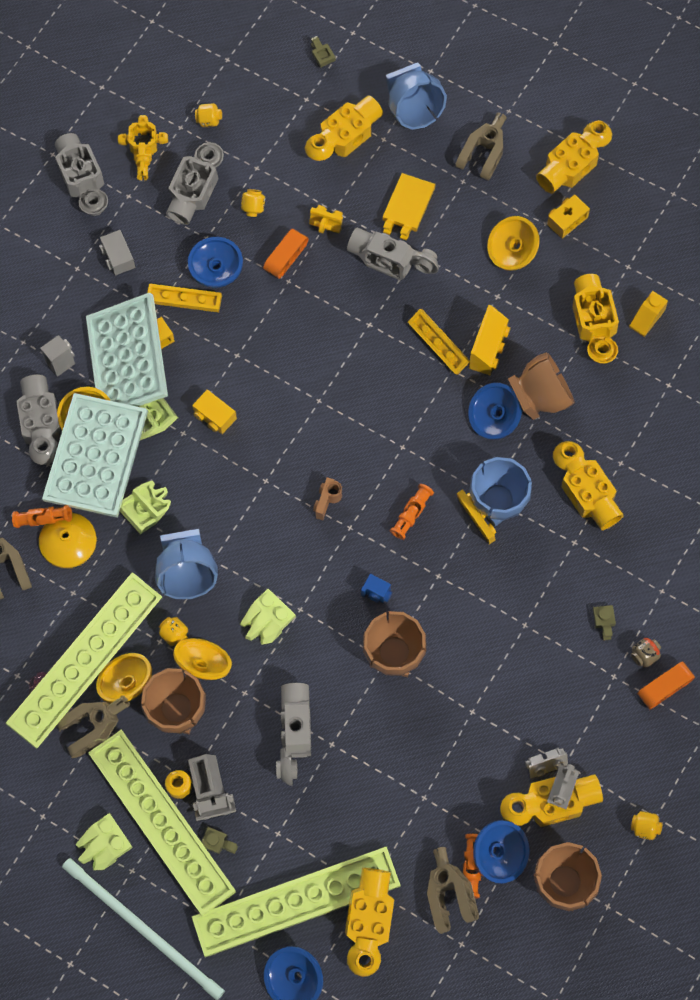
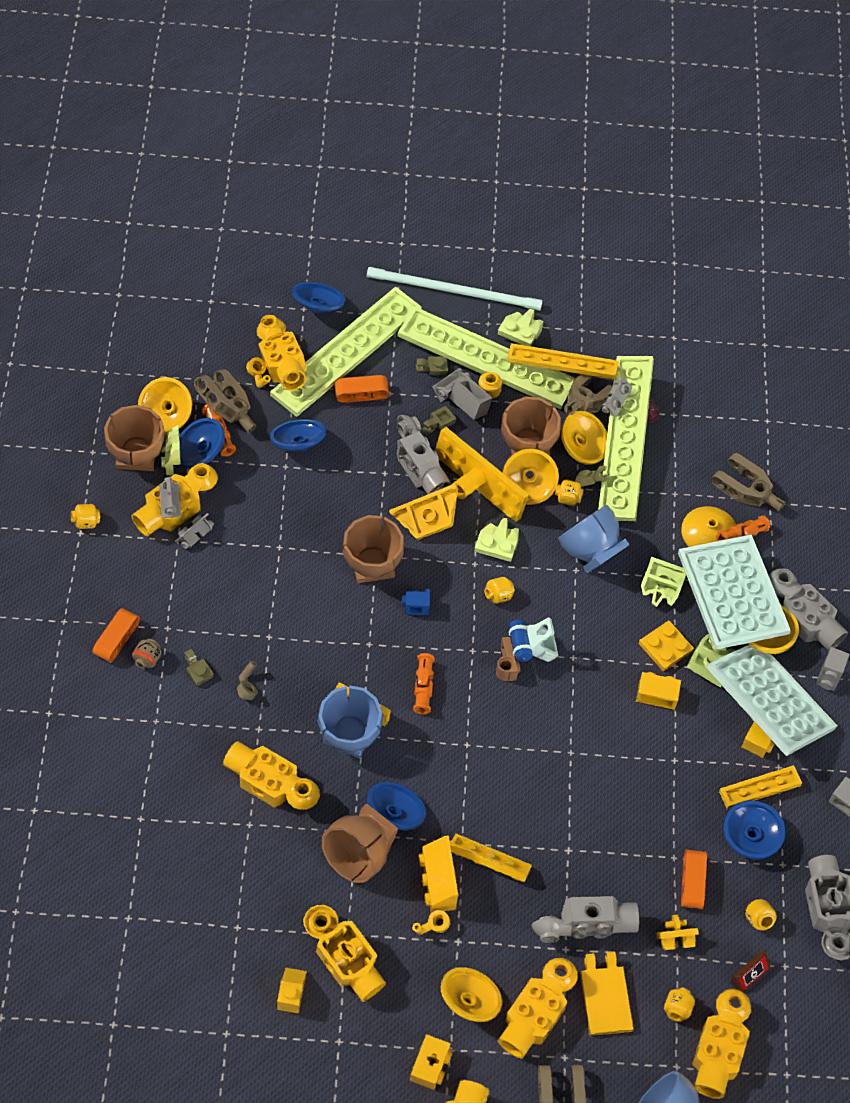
camera: 145 degrees right, 10 degrees down
(61, 702) = (618, 396): none -> light grey hinge
(94, 767) = (563, 361): none -> yellow plate
(146, 637) = (589, 477): none -> olive plate
(179, 451) = (666, 646): none -> yellow plate
(246, 772) = (440, 418): none -> olive plate
(252, 682) = (480, 475): none -> yellow plate
(287, 173) = (751, 972): none -> slope
(296, 566) = (499, 590): none -> yellow head
(298, 497) = (533, 640): none -> light aqua piece
(305, 846) = (361, 388): none -> orange beam
(319, 669) = (428, 513): none -> yellow wing
(357, 170) = (679, 1004): none -> yellow head
(397, 827) = (298, 435): none -> blue dish
(400, 918) = (261, 368): none -> yellow plate
(466, 214) = (538, 1008): none -> yellow brick
(512, 313) = (432, 923): none -> yellow plate
(522, 909) = (167, 391): none -> yellow dish
(534, 850) = (172, 450): none -> yellowish green plate
(570, 577) = (245, 689): none -> dark tan plate

